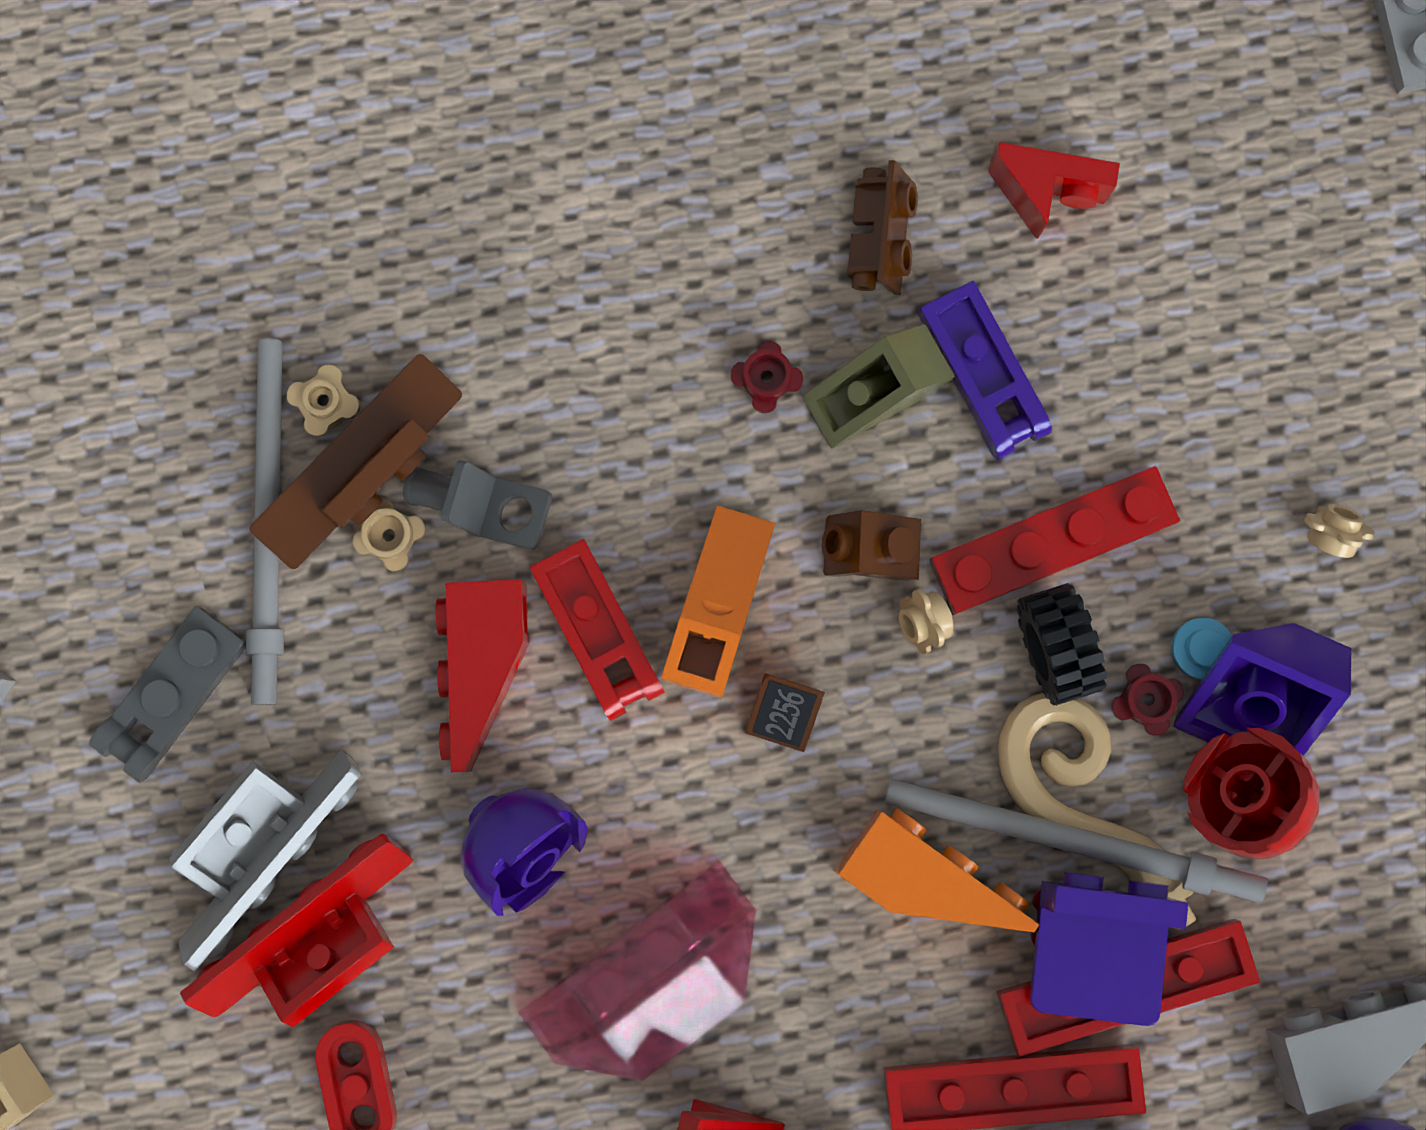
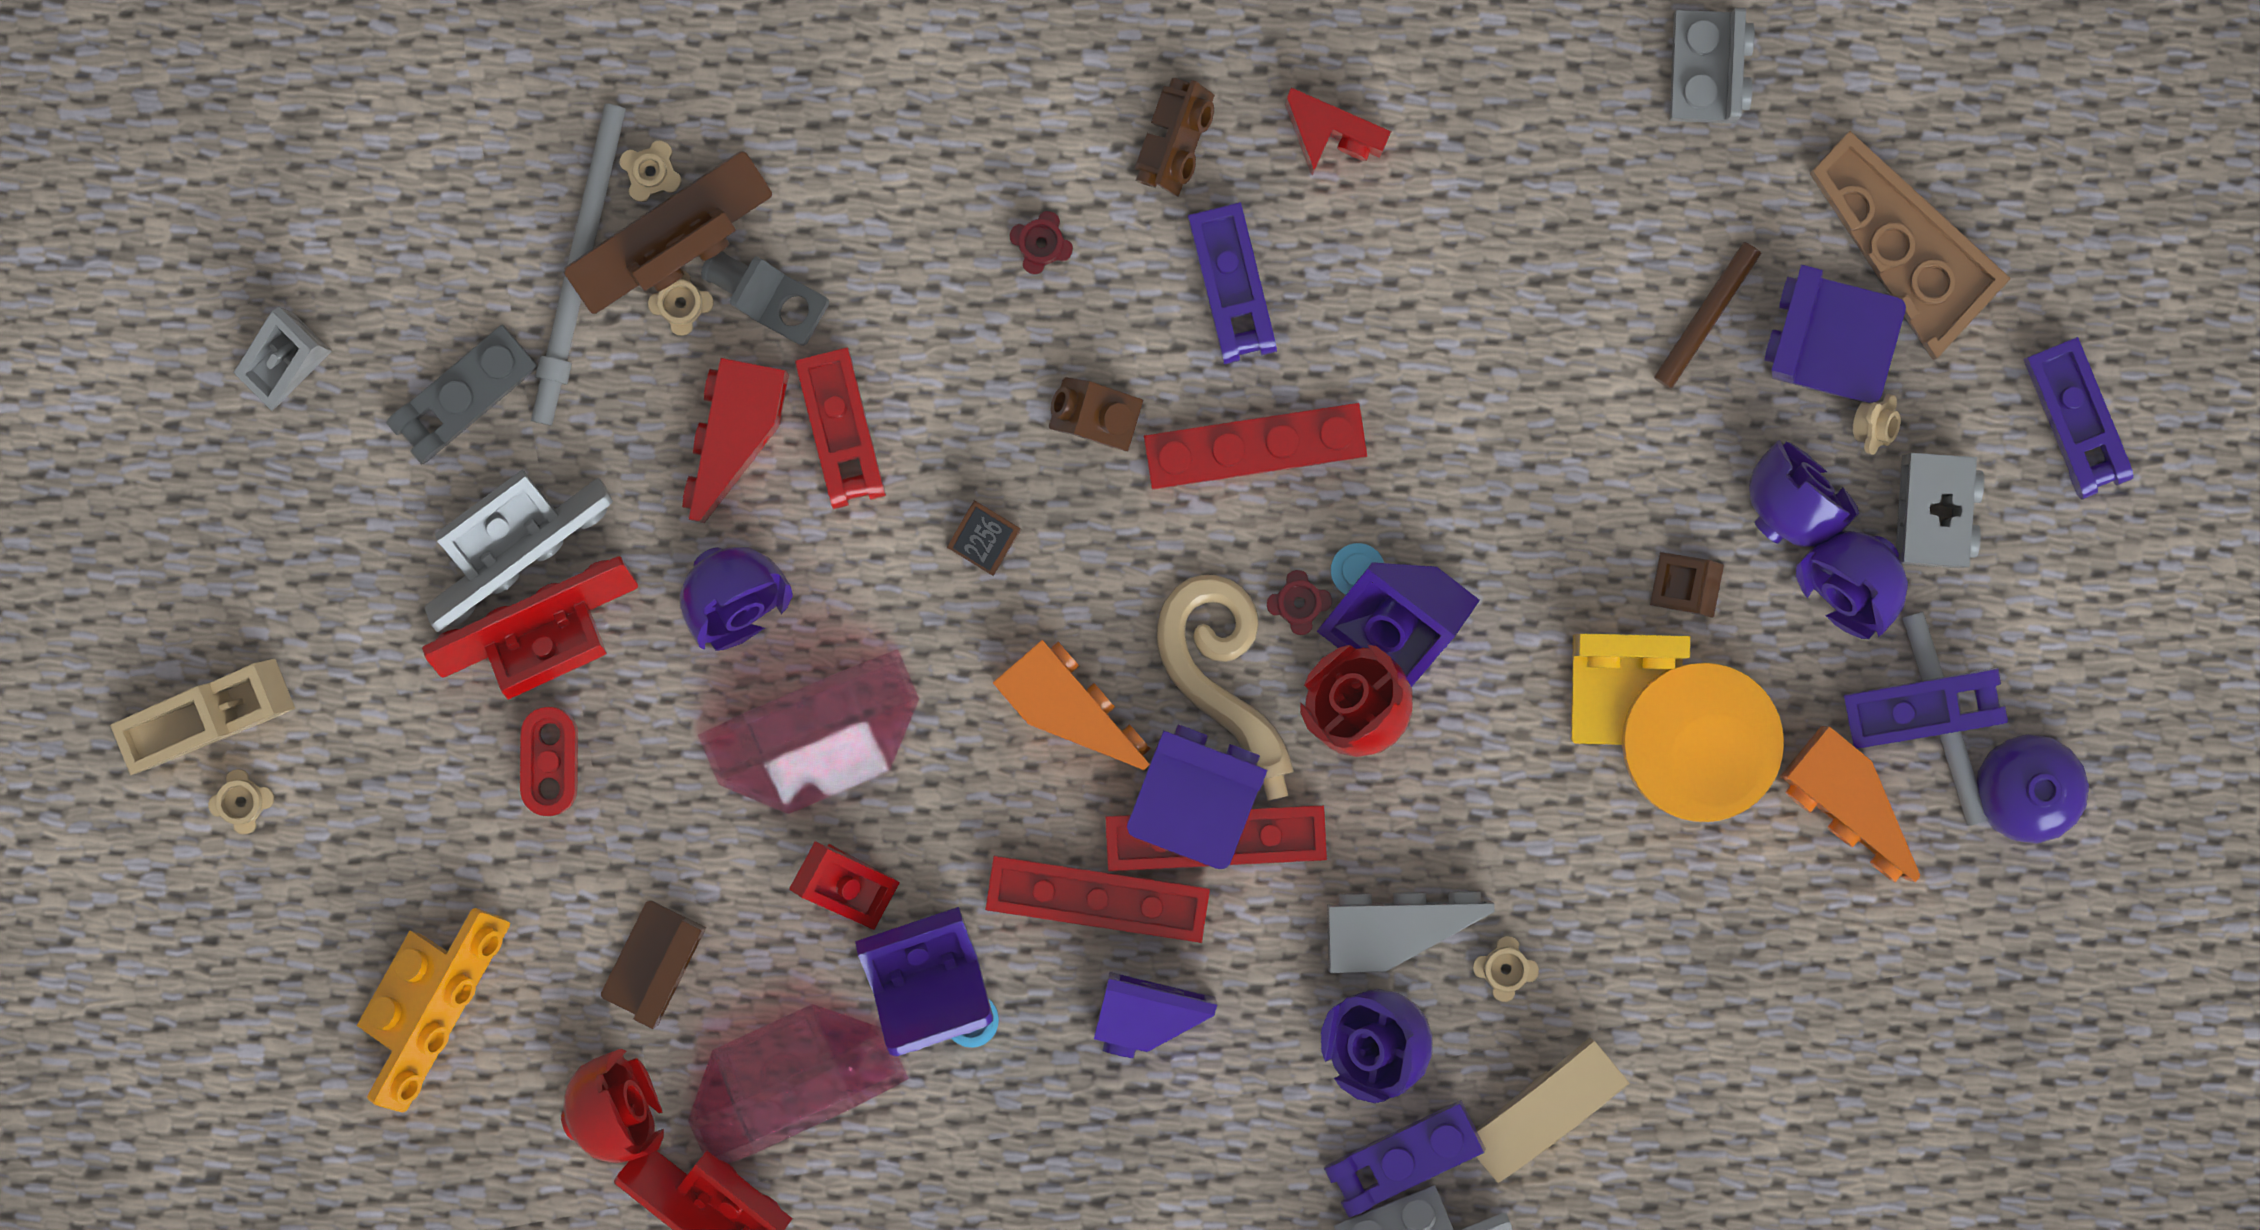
camera: 20 degrees right, 5 degrees up
(718, 602) = (949, 429): orange slope -> none
(878, 384) = (1135, 274): olive slope -> none
(925, 620) = (1123, 488): tan plate -> none
(1061, 644) = (1230, 536): black tyre -> none
(1196, 872) = (1291, 753): light grey bar -> none
(1337, 530) = (1500, 497): tan plate -> none

